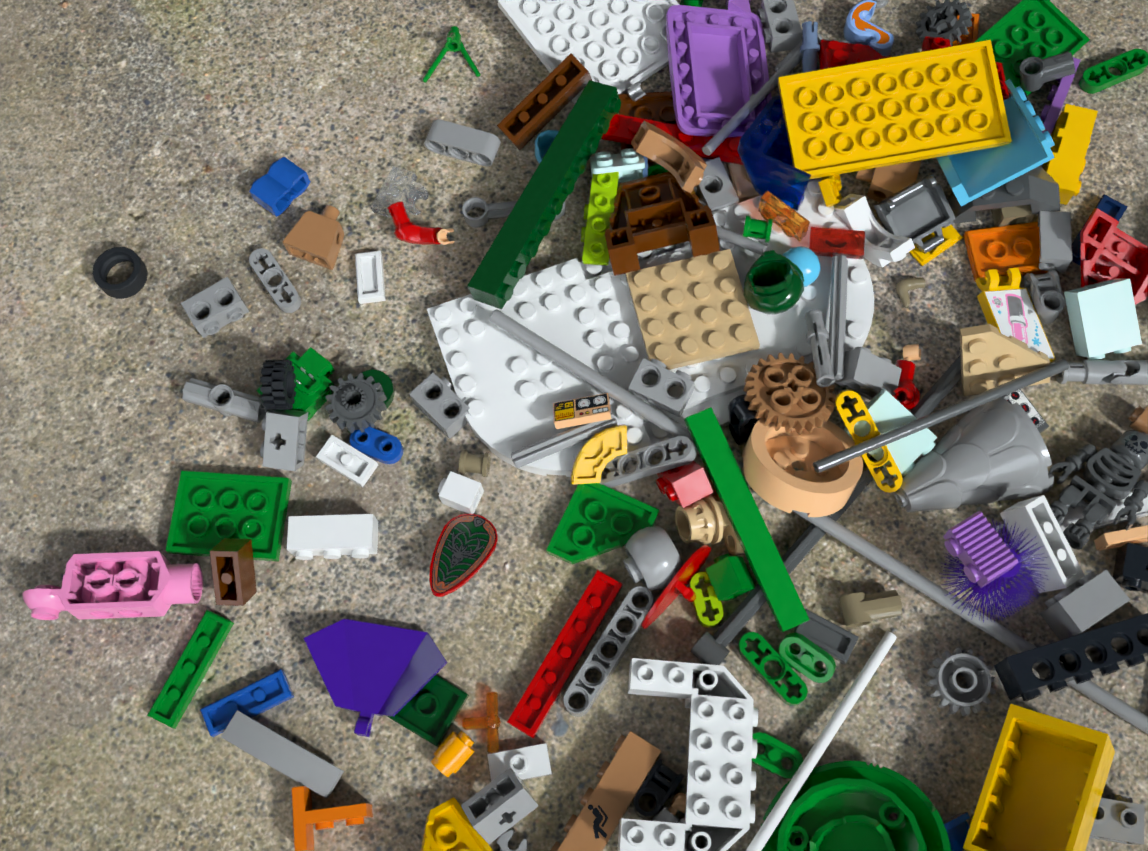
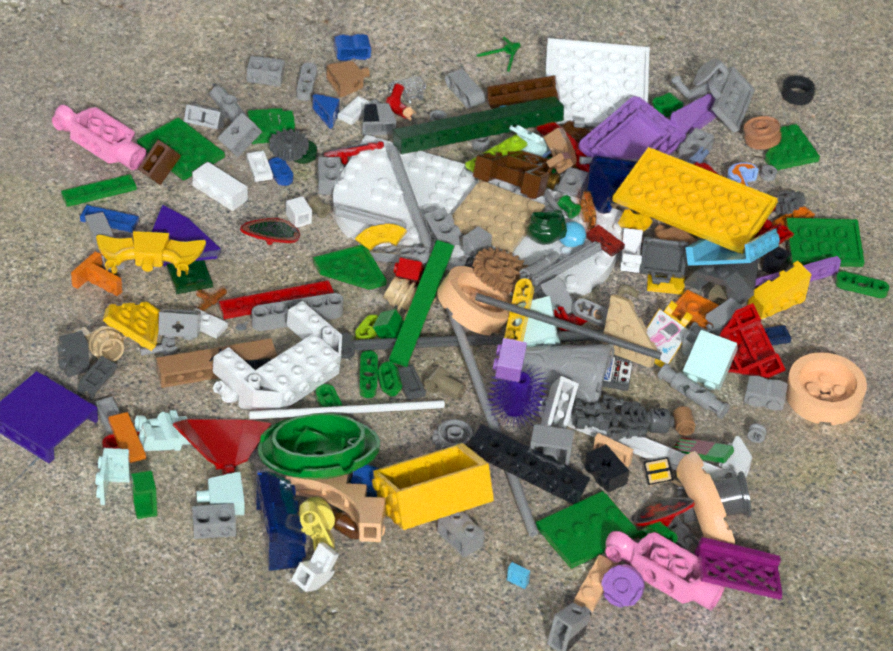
camera: 30 degrees right, 25 degrees down
(108, 260) = (237, 38): black tyre -> none
(213, 443) = (204, 116): none -> light grey brick
(278, 384) = (259, 106): black tyre -> none
(340, 305) = (326, 108): none -> blue slope
(357, 730) = (149, 251): none -> yellow torso
(412, 270) = (378, 119): none -> light grey torso
(418, 364) = (353, 150): none -> red piece
(453, 753) = (180, 296): light orange brick -> none
(582, 411) = (392, 212): tile -> none
(652, 558) = (359, 289): light grey wheel -> none
(678, 585) = (359, 306): red shield -> none
(717, 373) = (476, 241): none -> light grey brick
(918, 354) = (589, 315): none -> light grey beam
(1037, 71) = (809, 249): dark grey piece -> none

